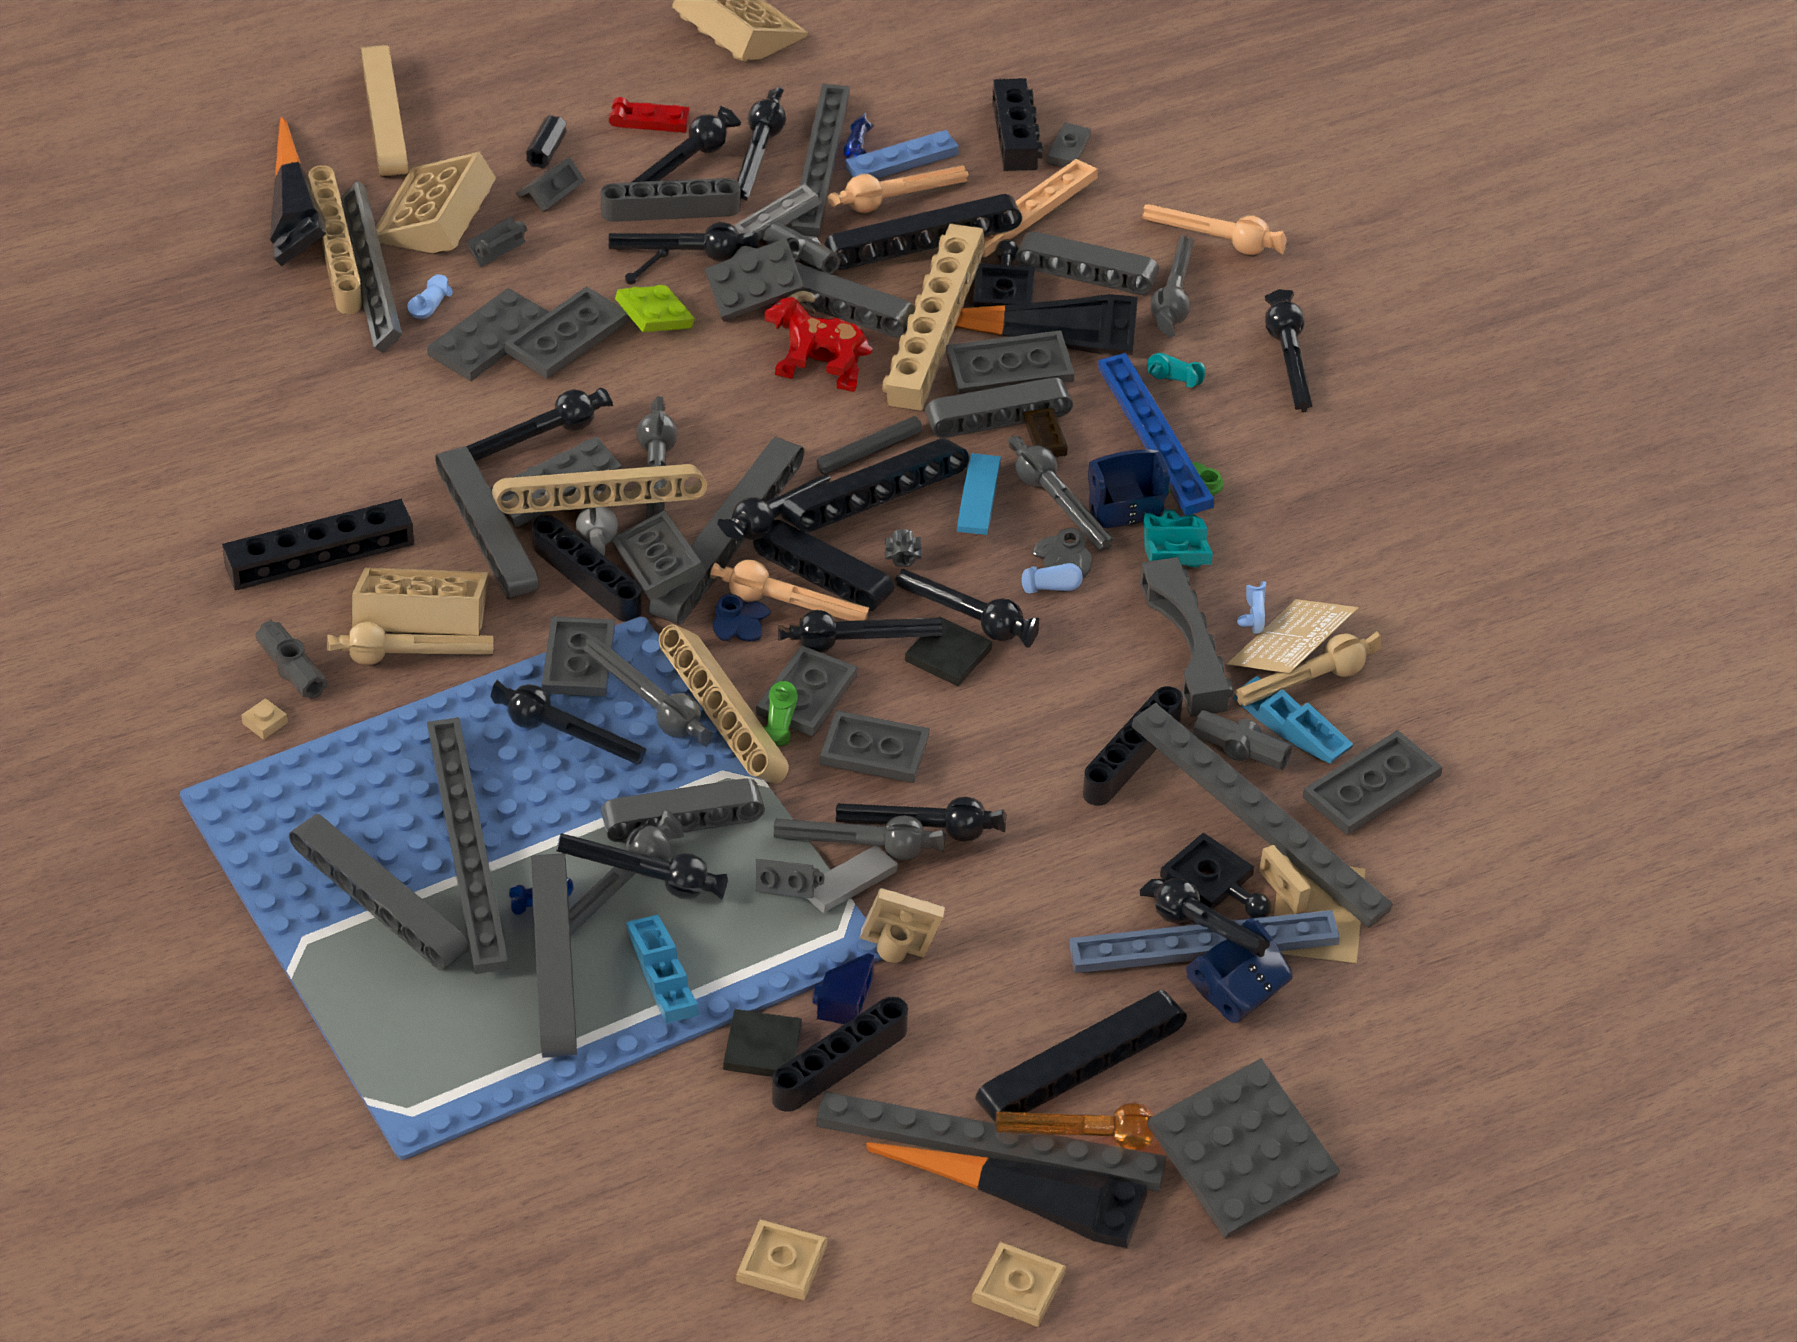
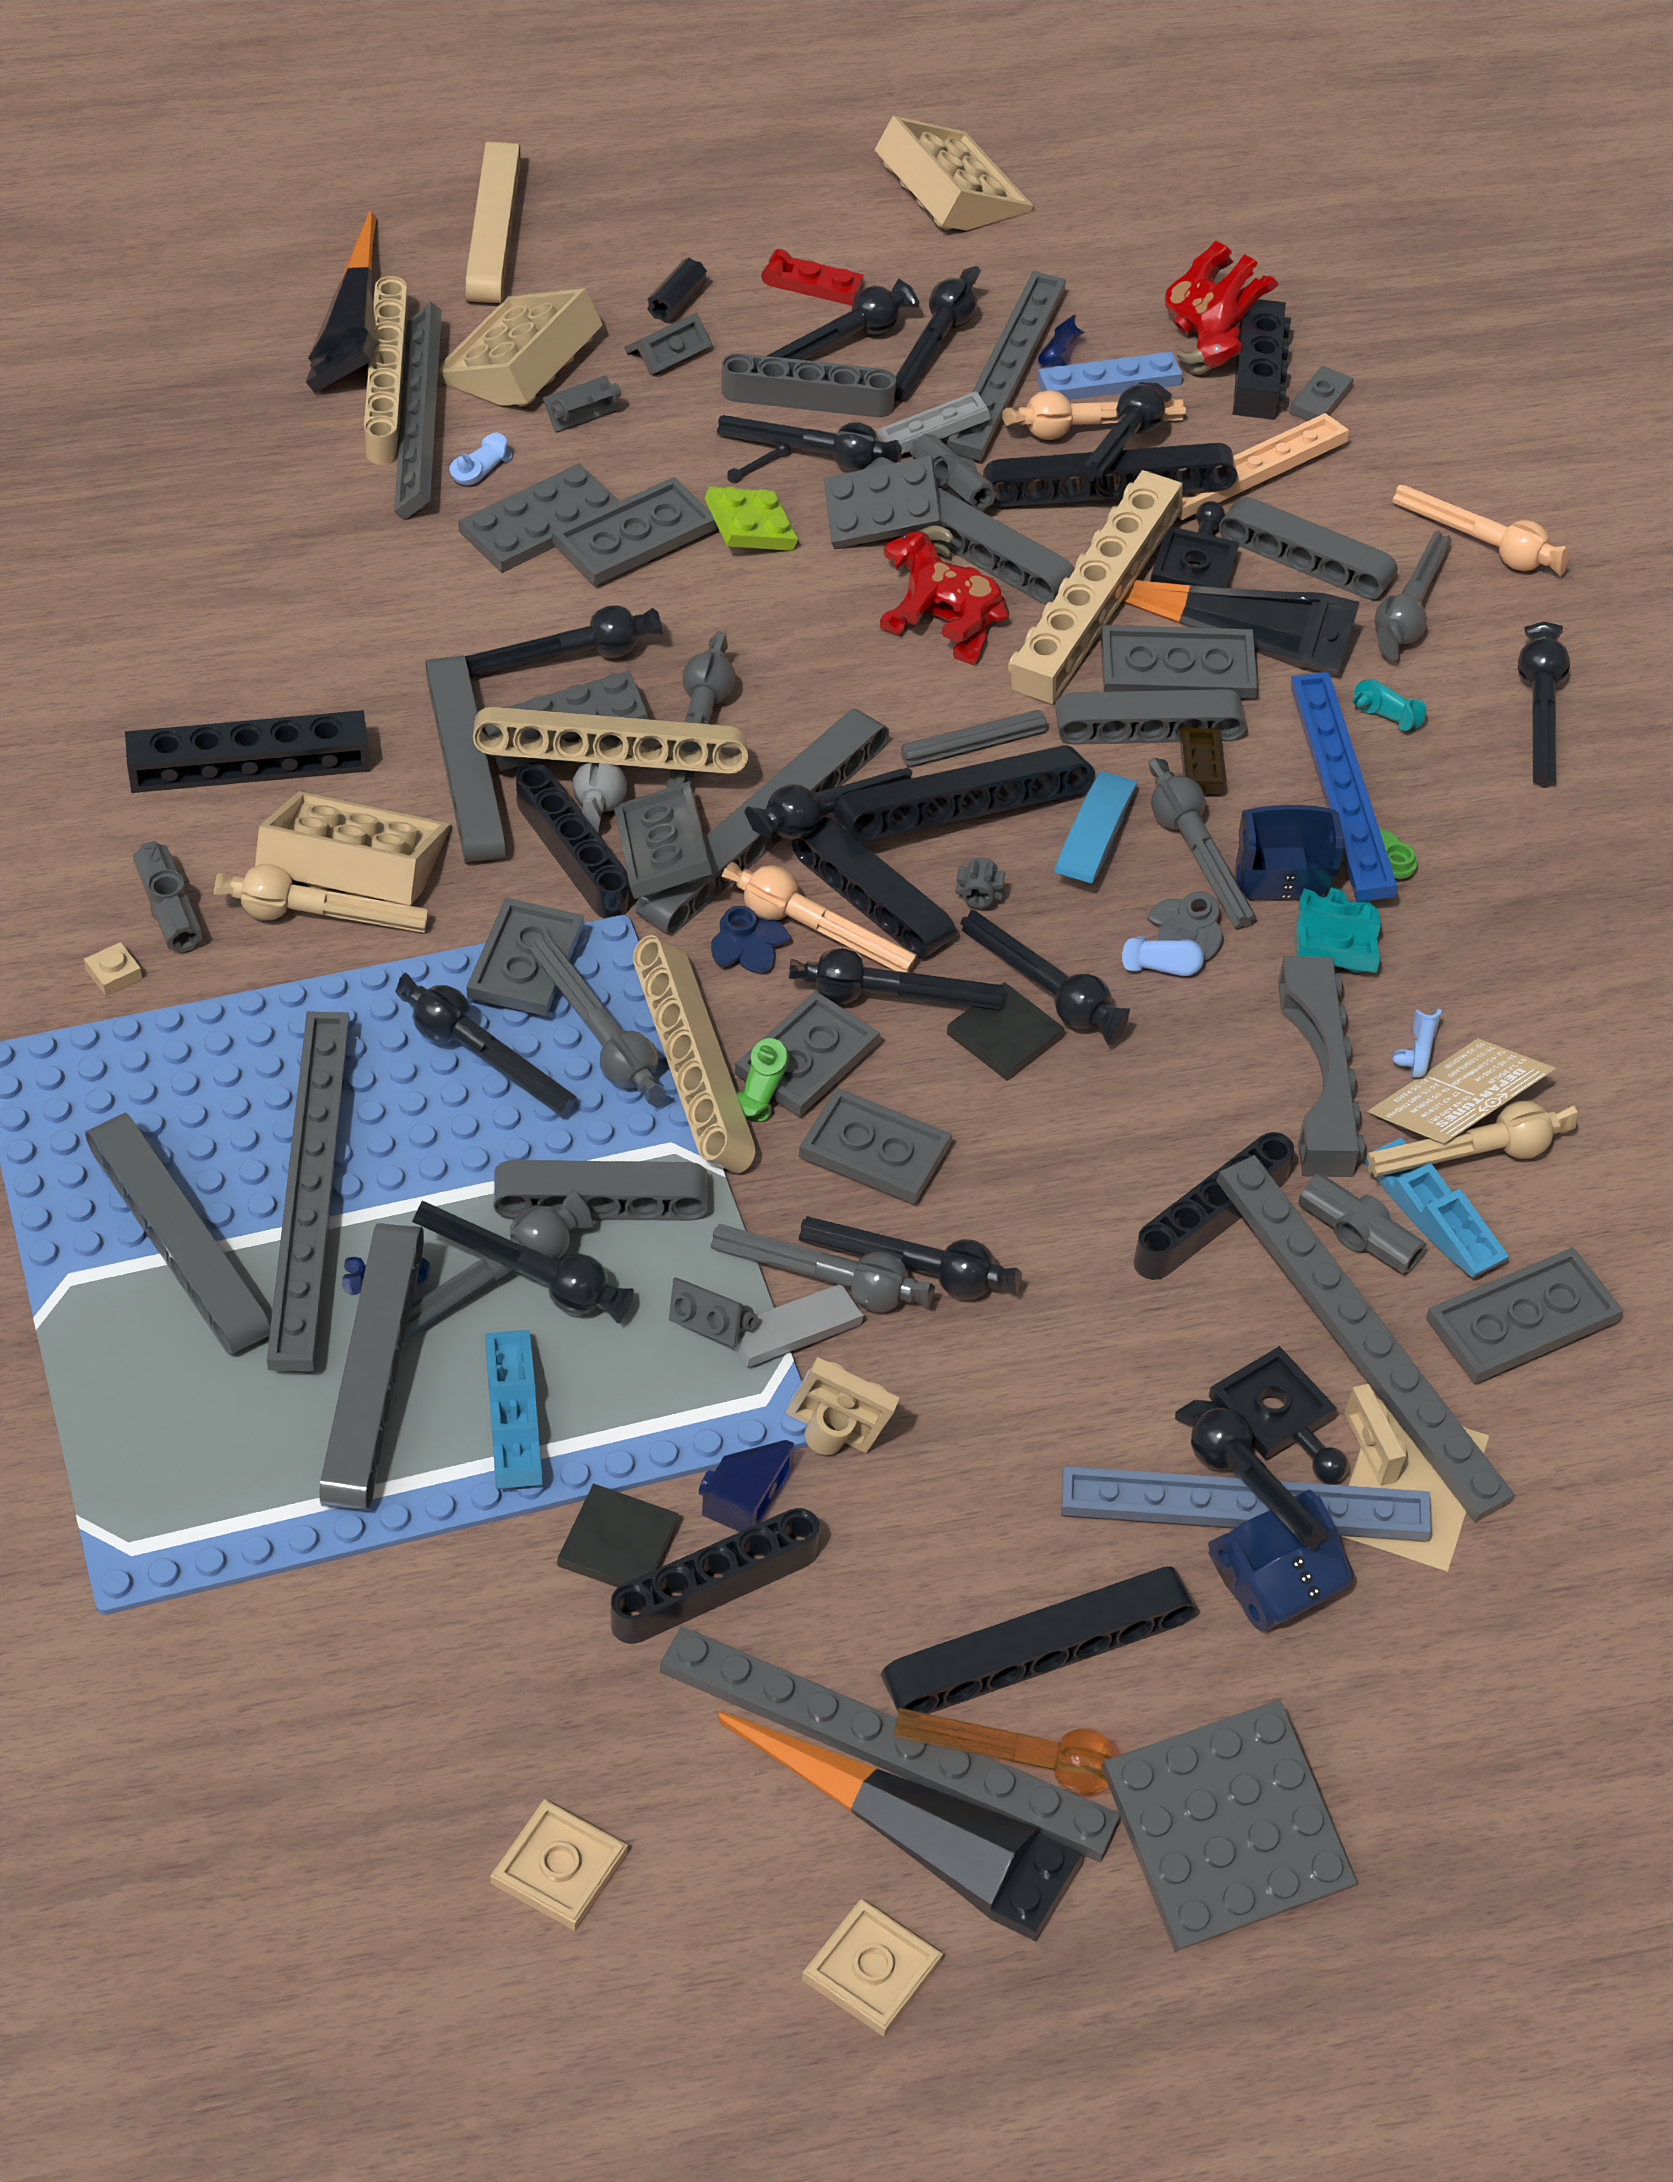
camera: 10 degrees right, 5 degrees up
(934, 180) = (1138, 412): none -> black piece
(972, 91) = (1213, 307): none -> red animal

